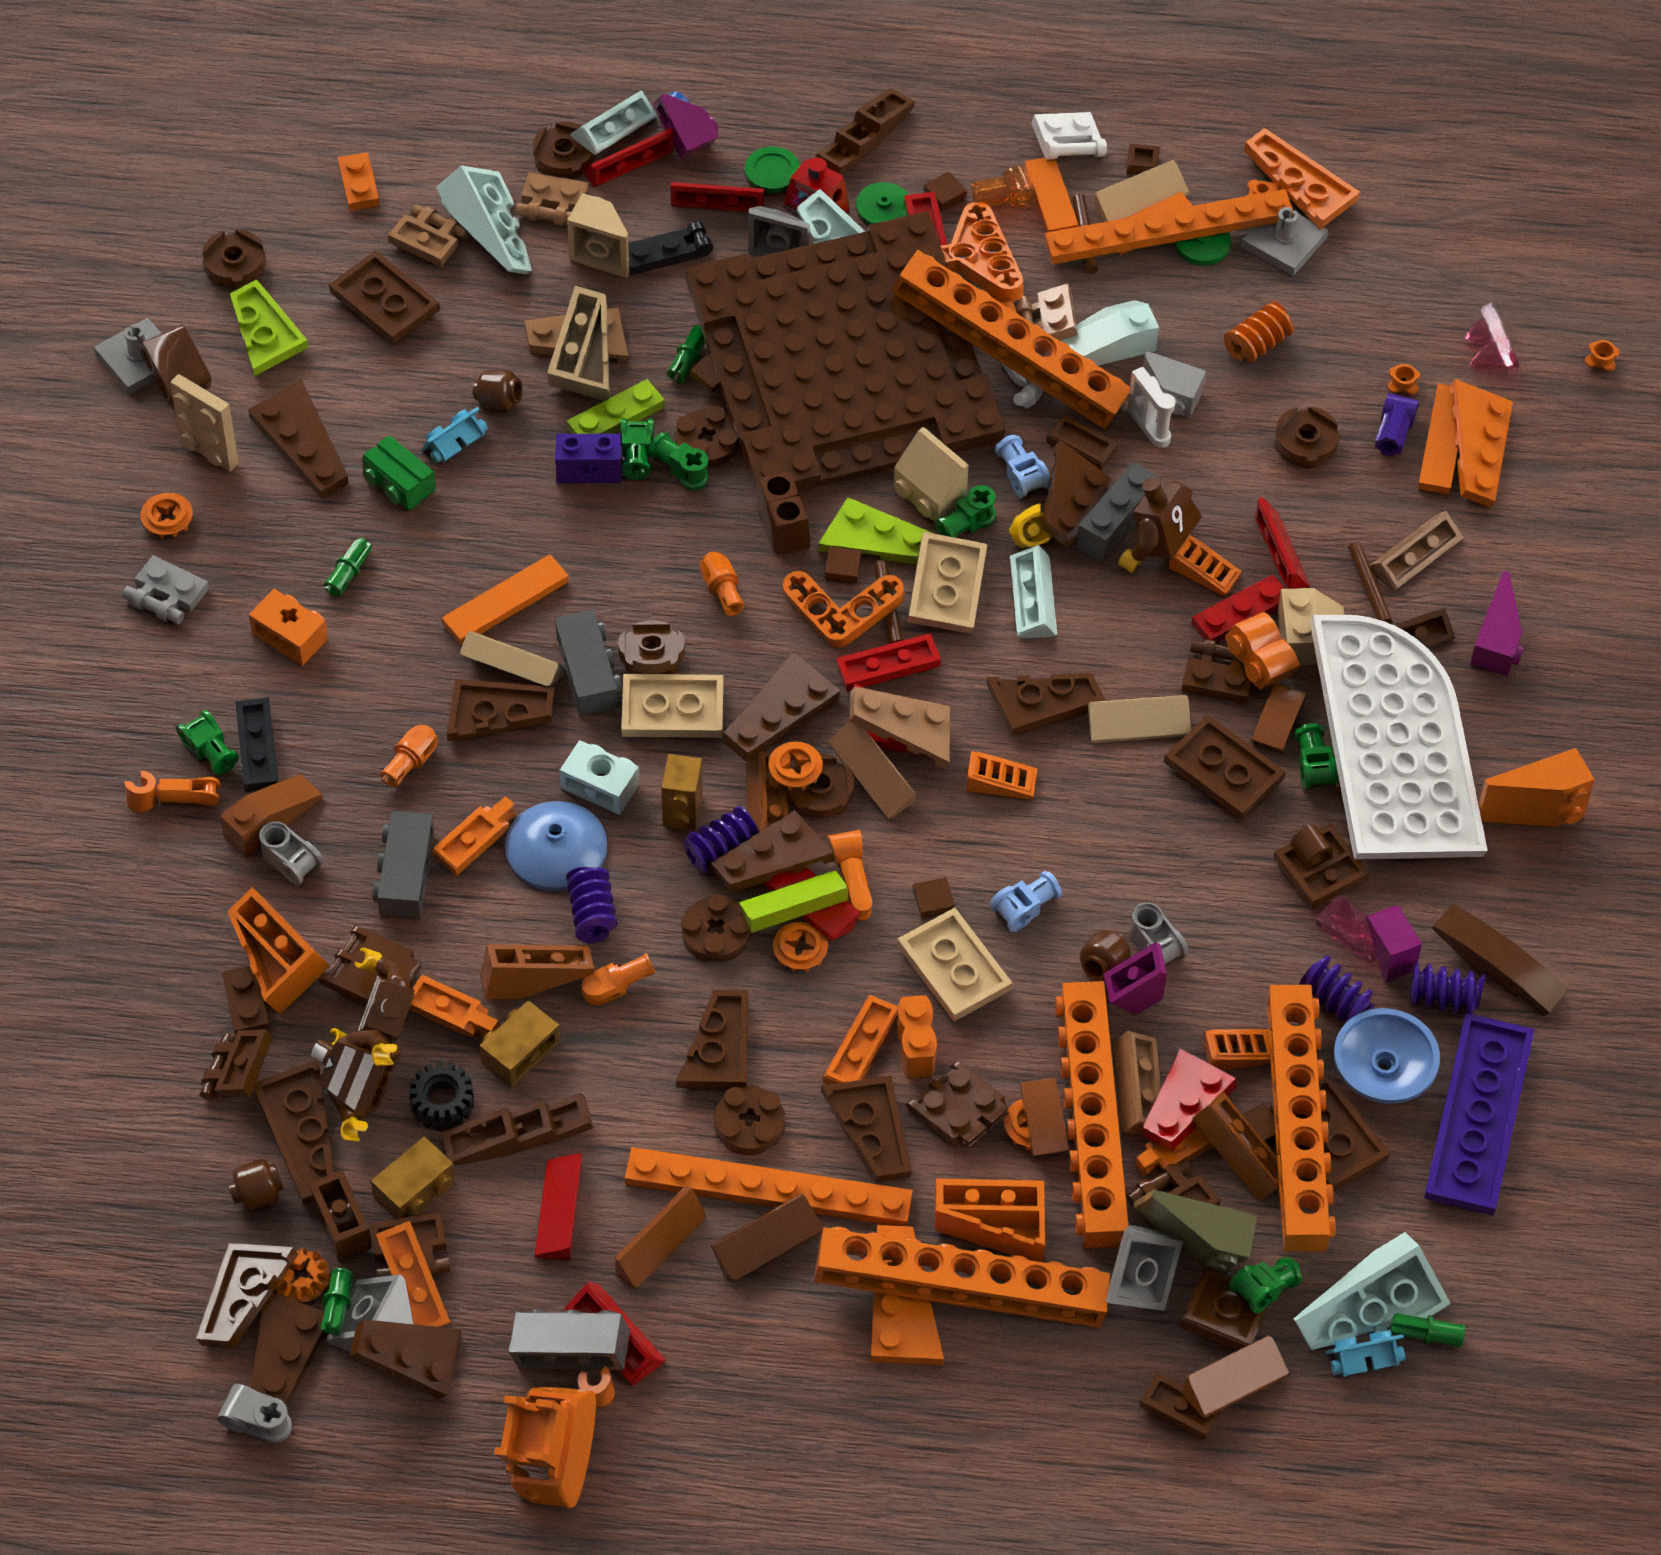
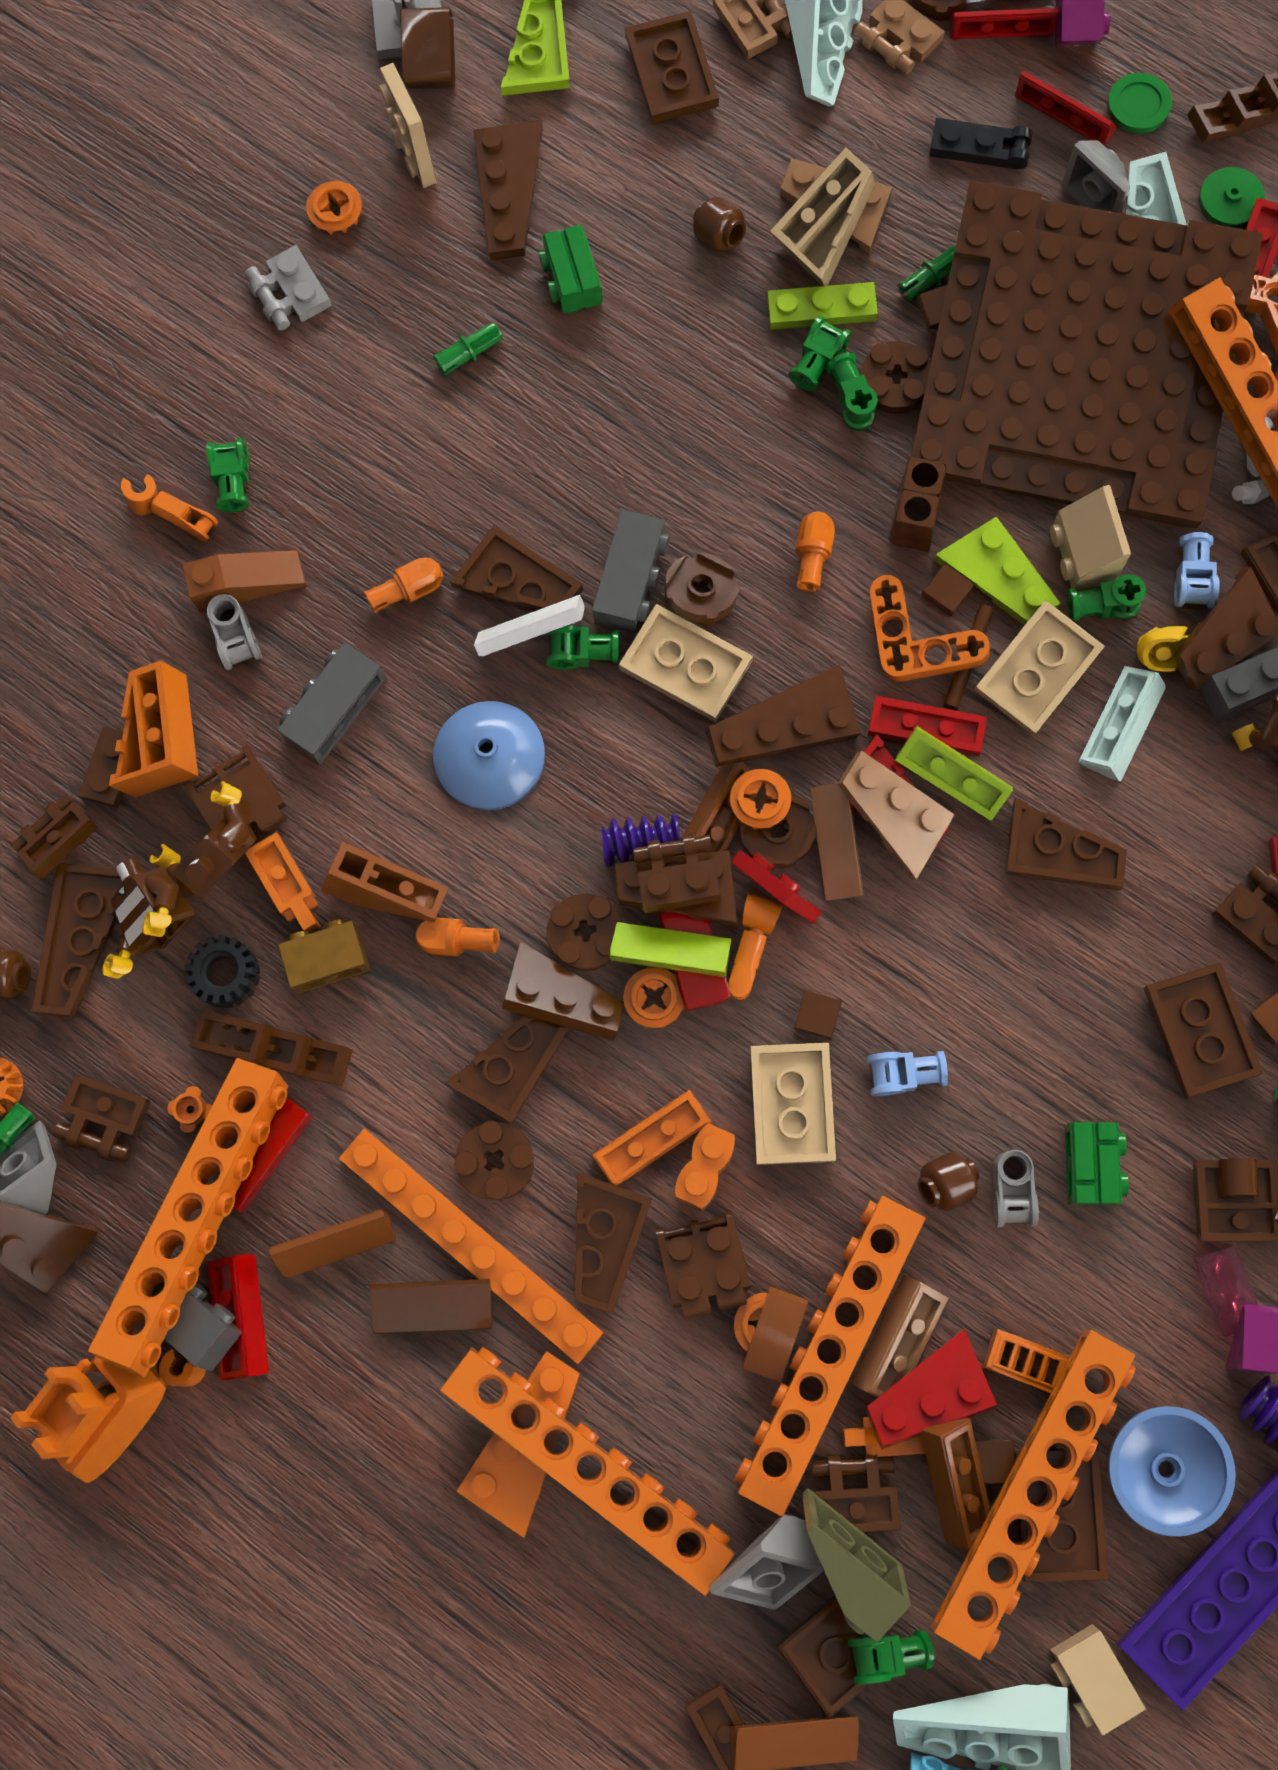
camera: 40 degrees right, 20 degrees up
(256, 743) = (273, 498): black plate -> none
(288, 626) = (377, 404): orange brick -> none
(340, 1216) = (50, 1052): reddish brown brick -> none
(406, 1258) = (76, 1159): orange plate -> none
(413, 1180) = (142, 1050): pearl gold brick -> none
(443, 441) = (663, 249): medium azure hinge -> none
(474, 836) = (415, 705): orange hinge -> none
(479, 1197) = (179, 1107): none -> orange plate
(506, 599) = (596, 459): orange tile -> none
(511, 659) = (560, 531): tan slope -> none
(534, 732) = (529, 626): none -> white tile
(540, 1260) = (172, 1228): none -> orange brick
(582, 729) = (581, 647): none -> green connector
(588, 458) = (762, 343): dark purple brick -> none
(591, 903) = (477, 841): dark purple piece -> none
(598, 236) = (911, 95): tan slope -> none
(609, 791) = (572, 726): light aqua brick -> none
(682, 791) = (630, 770): pearl gold brick -> none
(723, 978) = (559, 996): none -> wing
(771, 847) = (678, 884): none -> reddish brown plate
(810, 178) = (1171, 135): red torso -> none
(844, 818) = (781, 888): none -> red wing
(930, 682) = (954, 773): none -> lime plate
(988, 785) = (946, 917): orange slope -> none
(994, 1214) = (663, 1416): orange wedge -> none
(1138, 980) = (958, 1237): magenta slope -> none
(1139, 719) = (1146, 927): tan slope -> none
(1203, 891) = (1094, 1164): none -> green brick
(1336, 991) = (1166, 1361): dark purple piece -> none
(1426, 1220) = (1096, 1679): none -> tan brick

